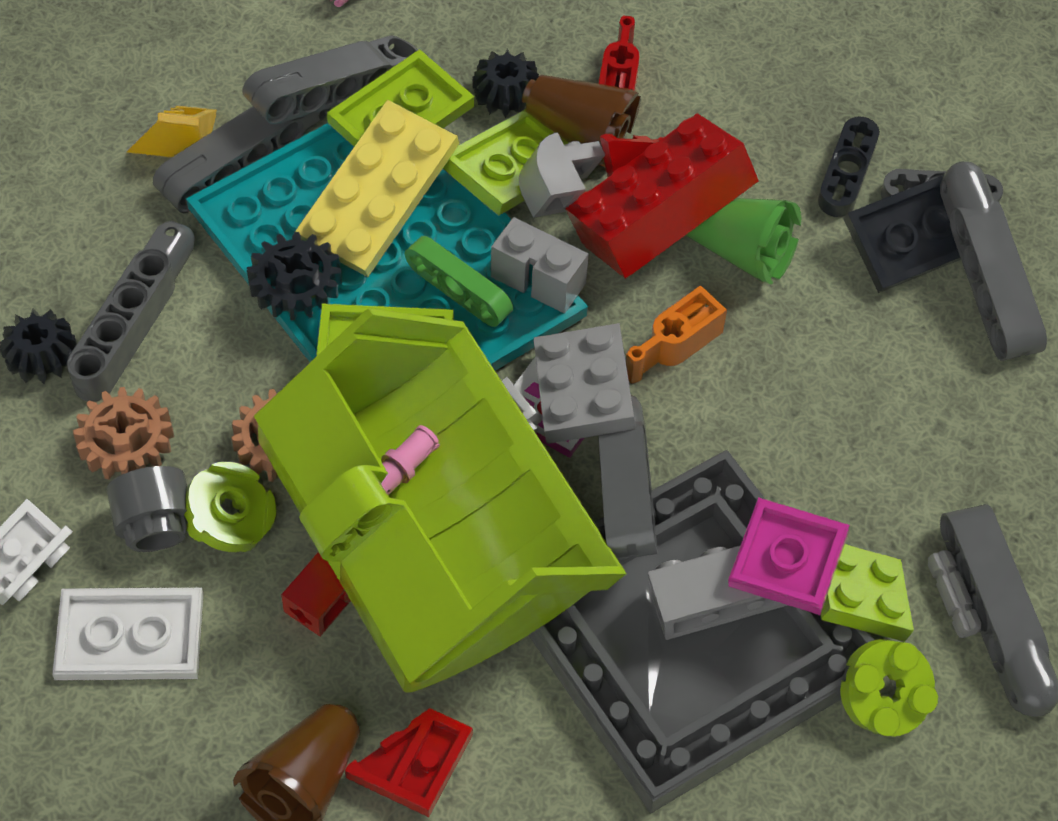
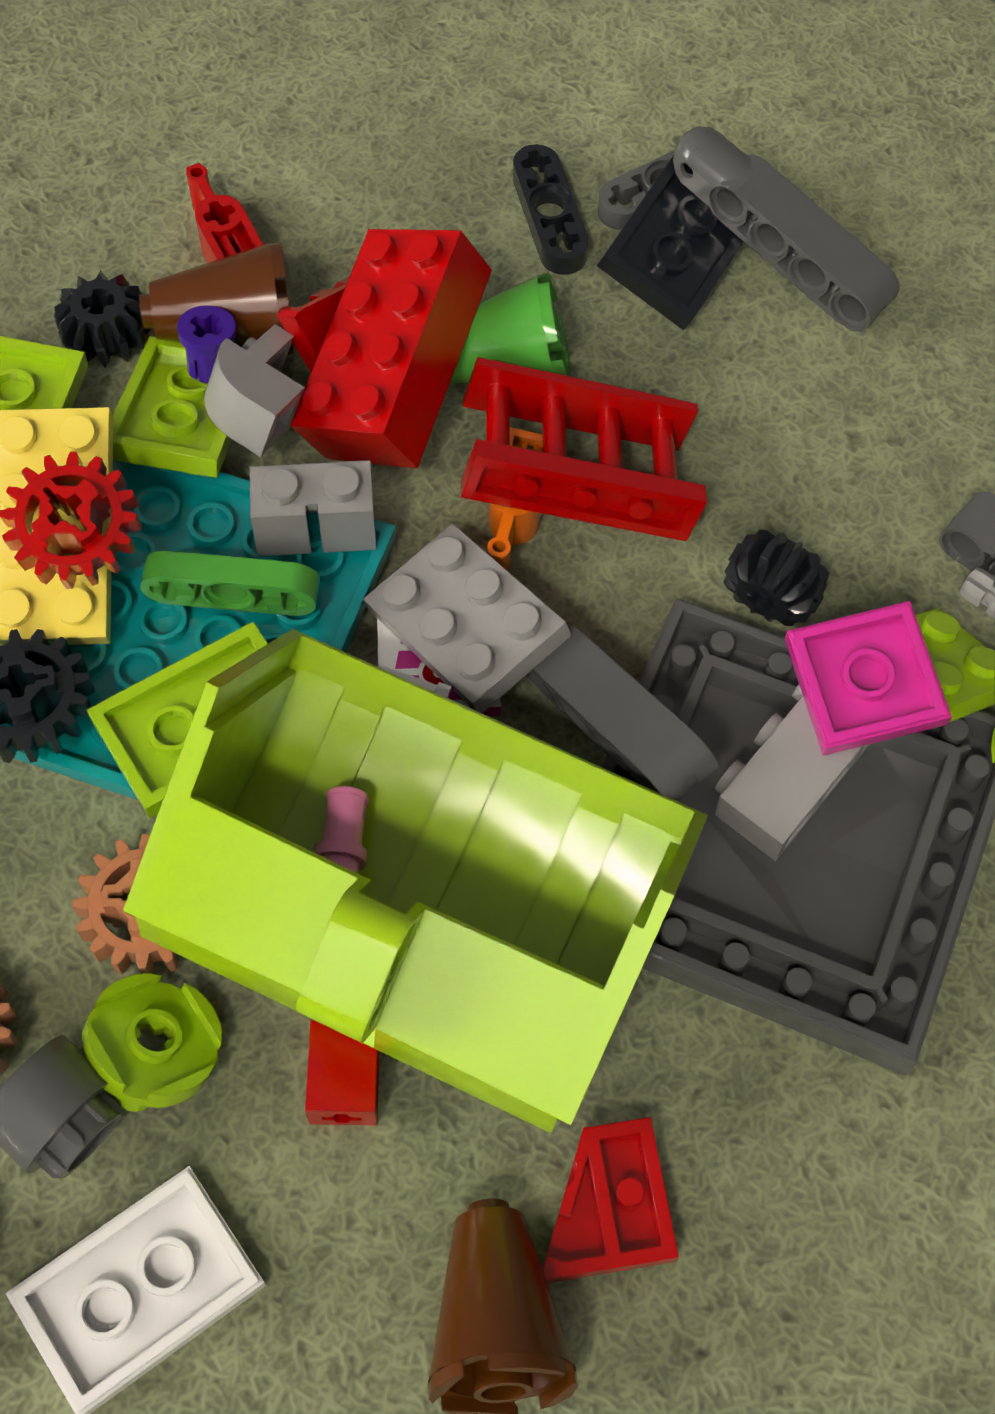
camera: 35 degrees left, 5 degrees up
(405, 193) = (87, 497): none -> red gear
(549, 120) = (202, 335): none -> dark purple bush
(713, 348) = (574, 487): none -> red fence
(800, 474) = (776, 577): none -> black gear

